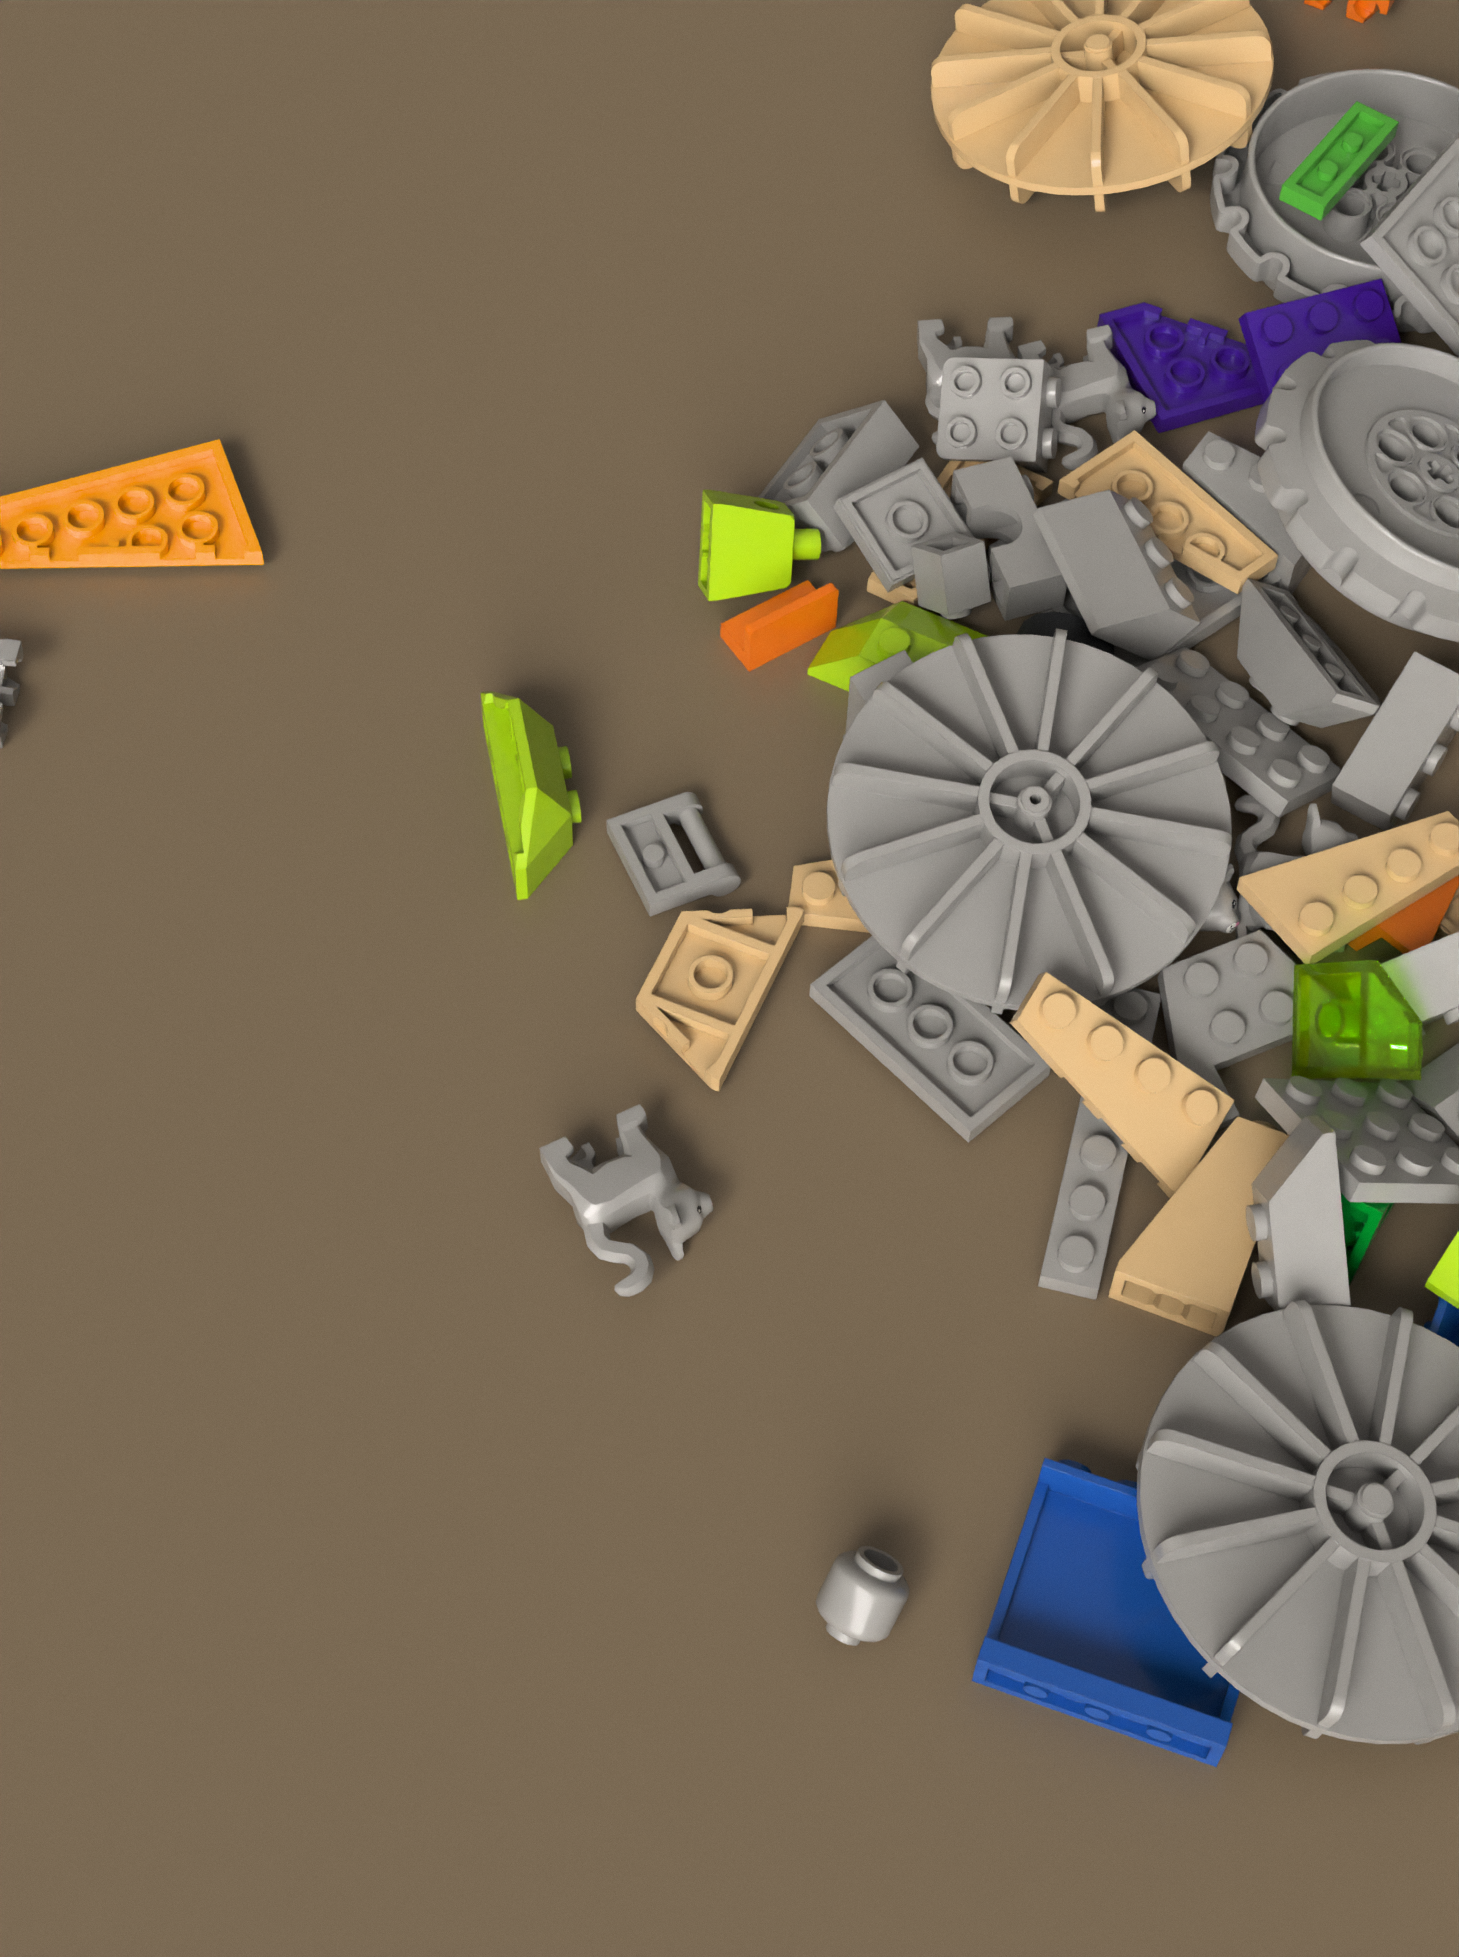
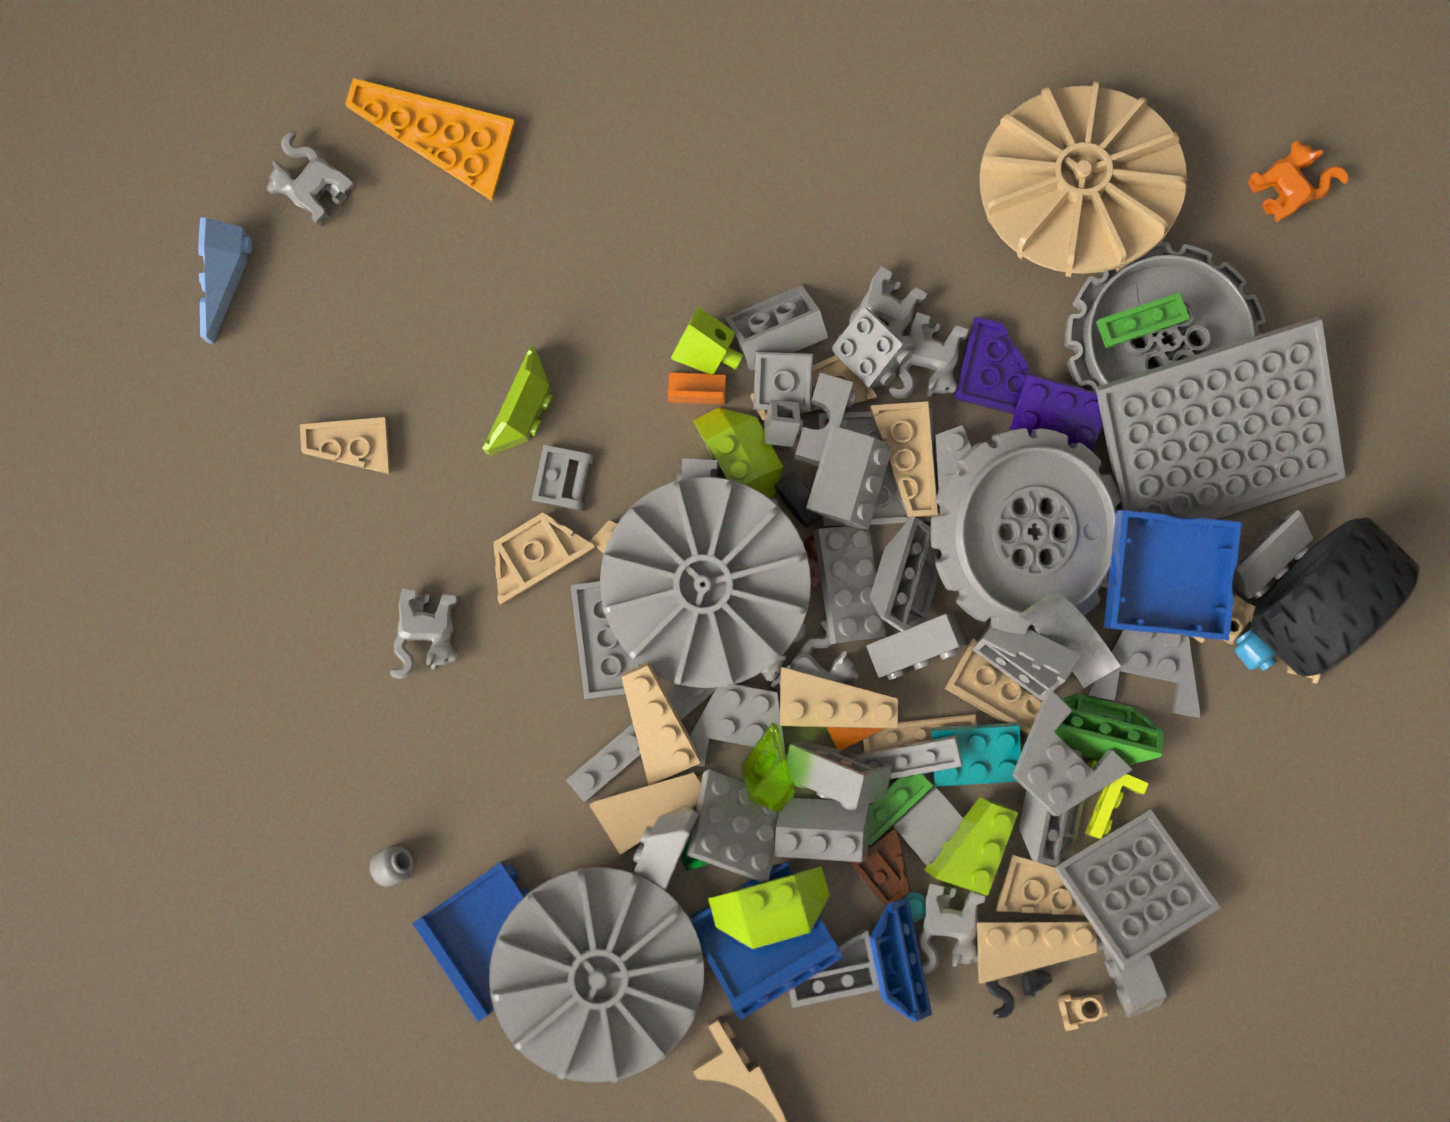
camera: 35 degrees right, 25 degrees up
(280, 1004) = (349, 442): none -> tan wing

